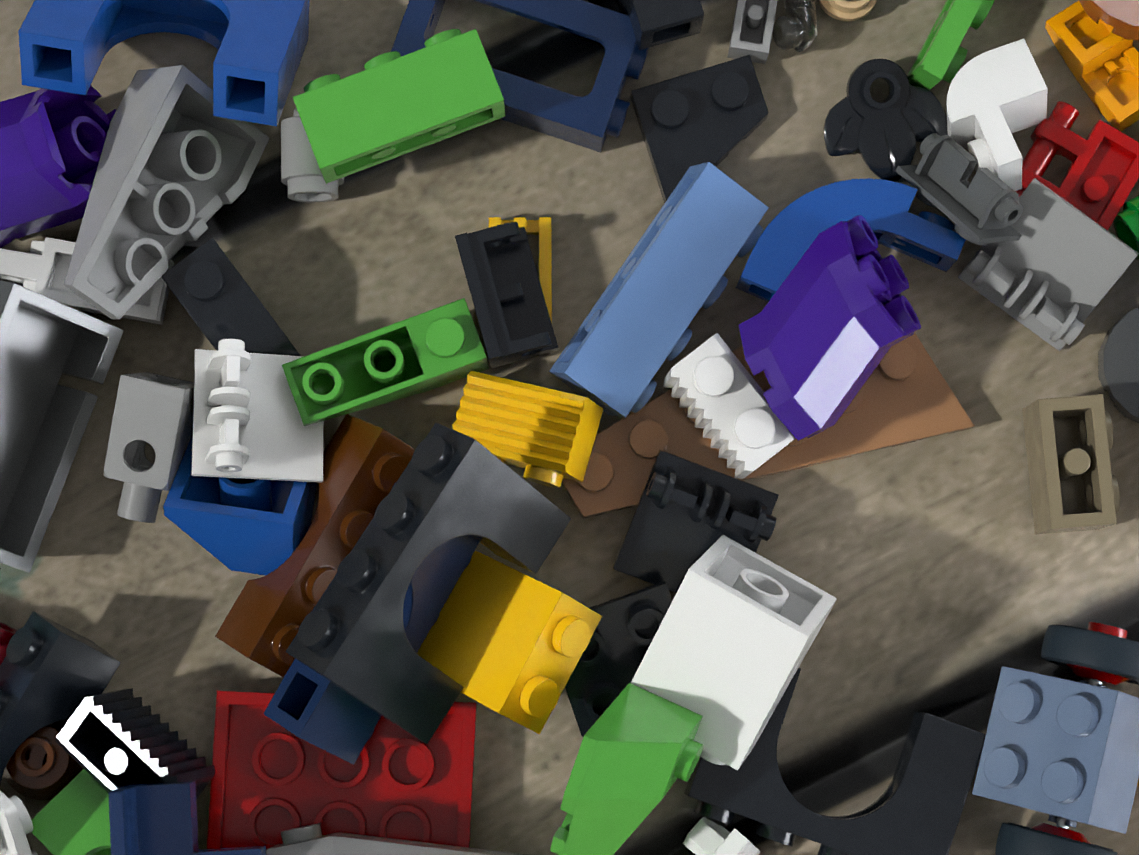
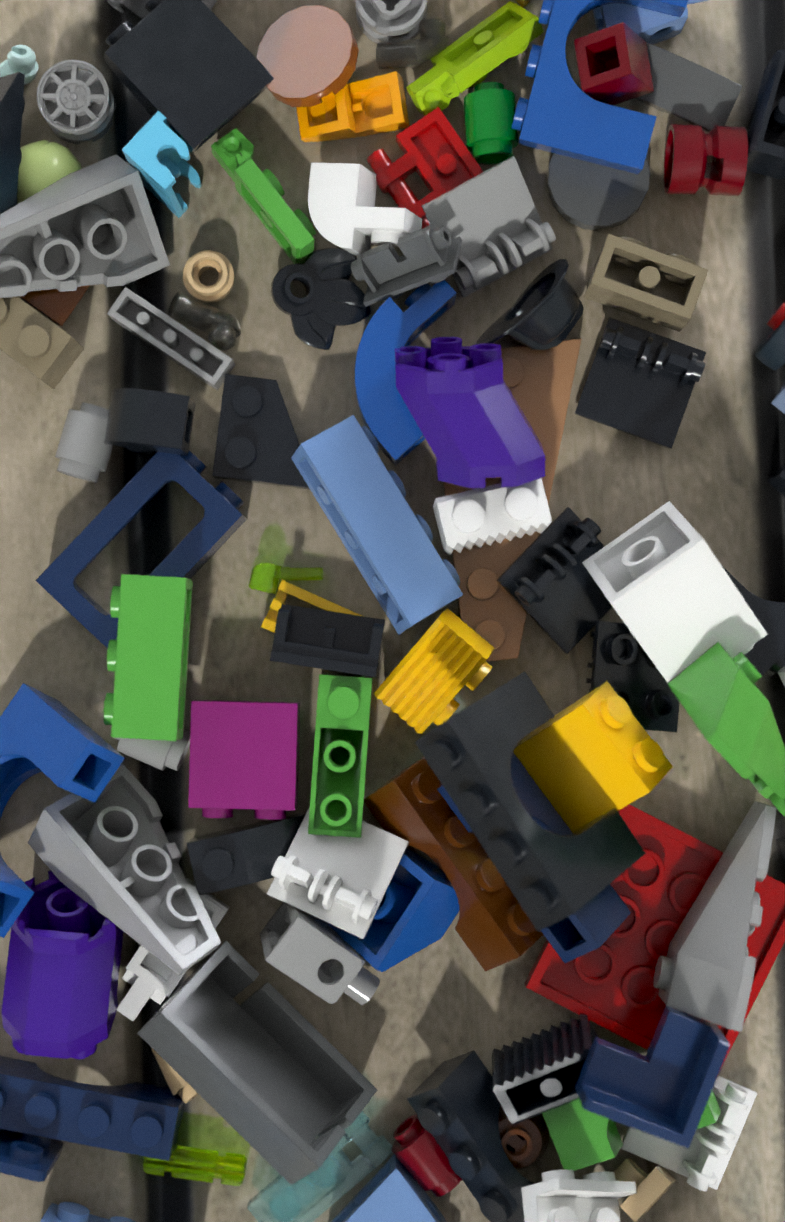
camera: 60 degrees left, 5 degrees up
(335, 262) = (244, 757): none -> magenta brick
(548, 199) = (267, 575): none -> clear neon green hand
(956, 515) = (640, 382): none -> black hinge
(980, 370) = (541, 313): none -> black piece

